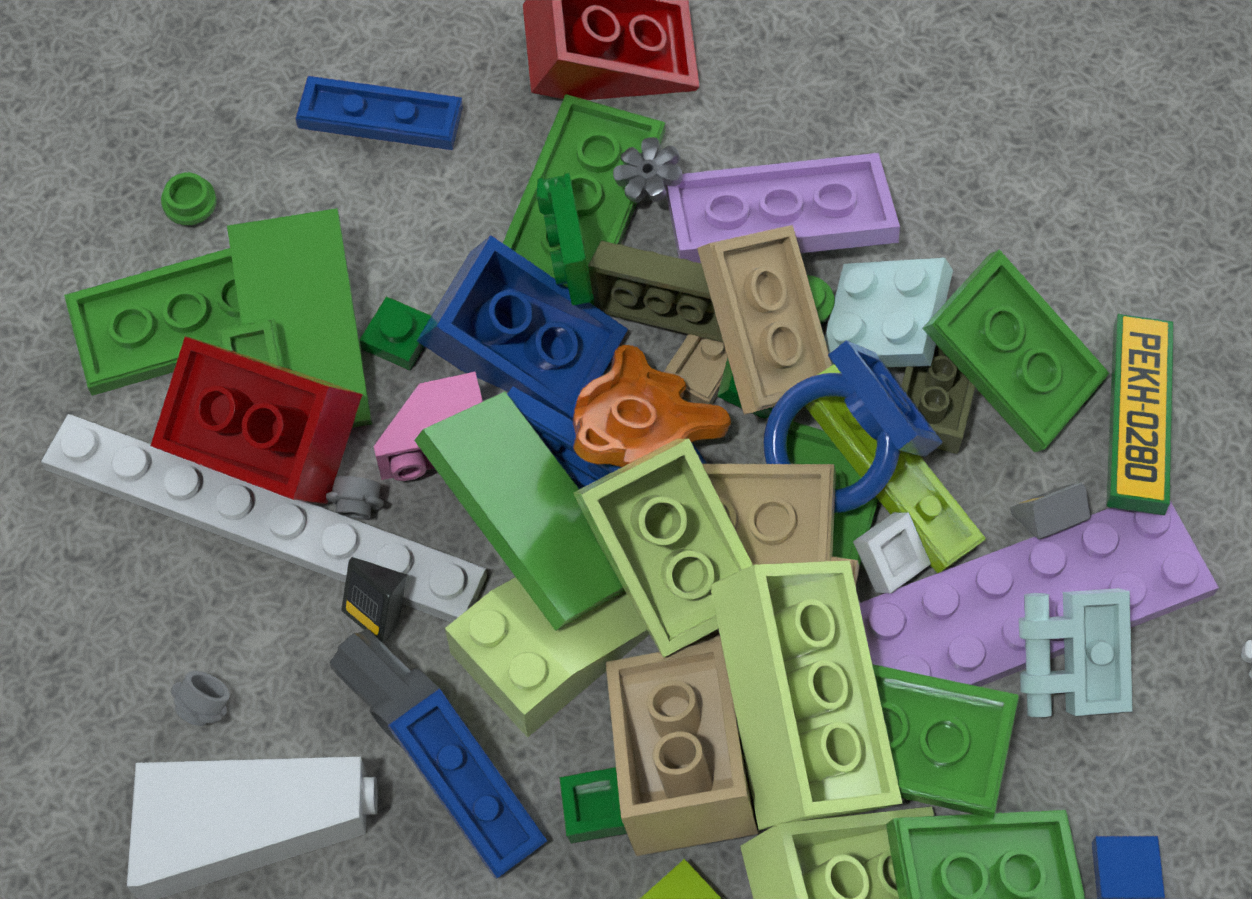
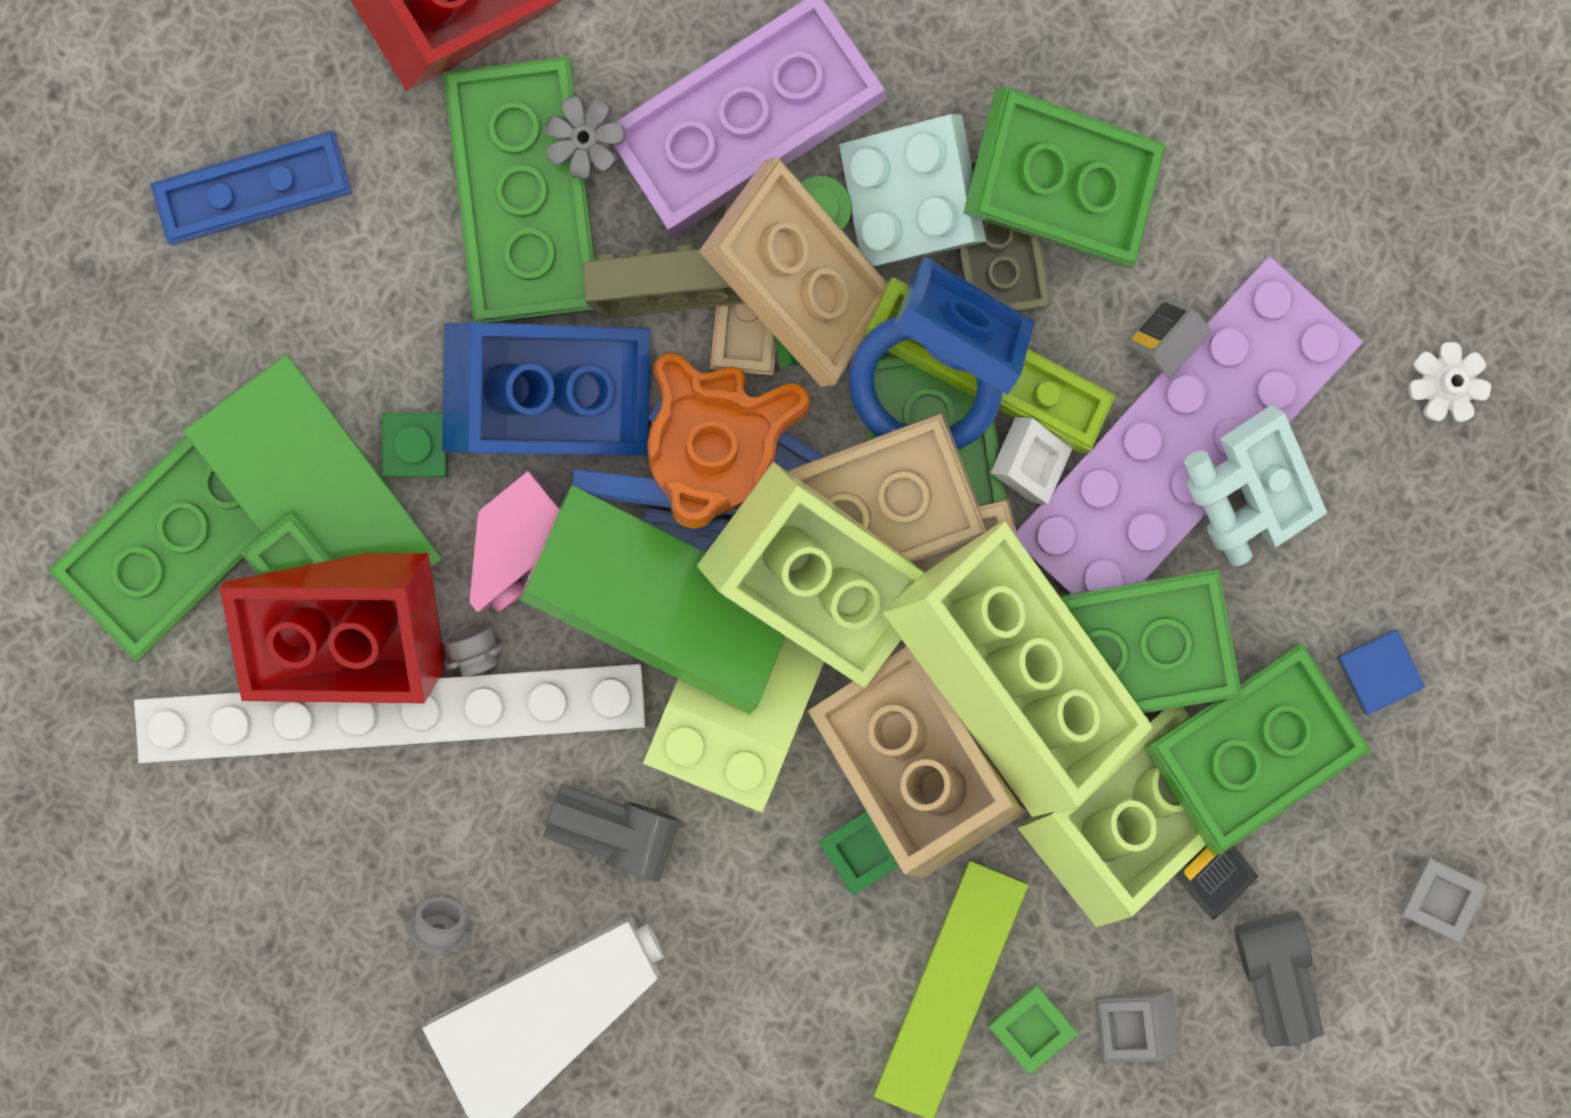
camera: 20 degrees left, 25 degrees up
(188, 199) = (109, 396): bright green plate -> none
(373, 597) = (549, 749): pearl dark grey slope -> none
(467, 783) = (735, 890): blue tile -> none
(563, 229) = (537, 264): green hinge -> none
(1140, 415) = (1216, 182): tile -> none

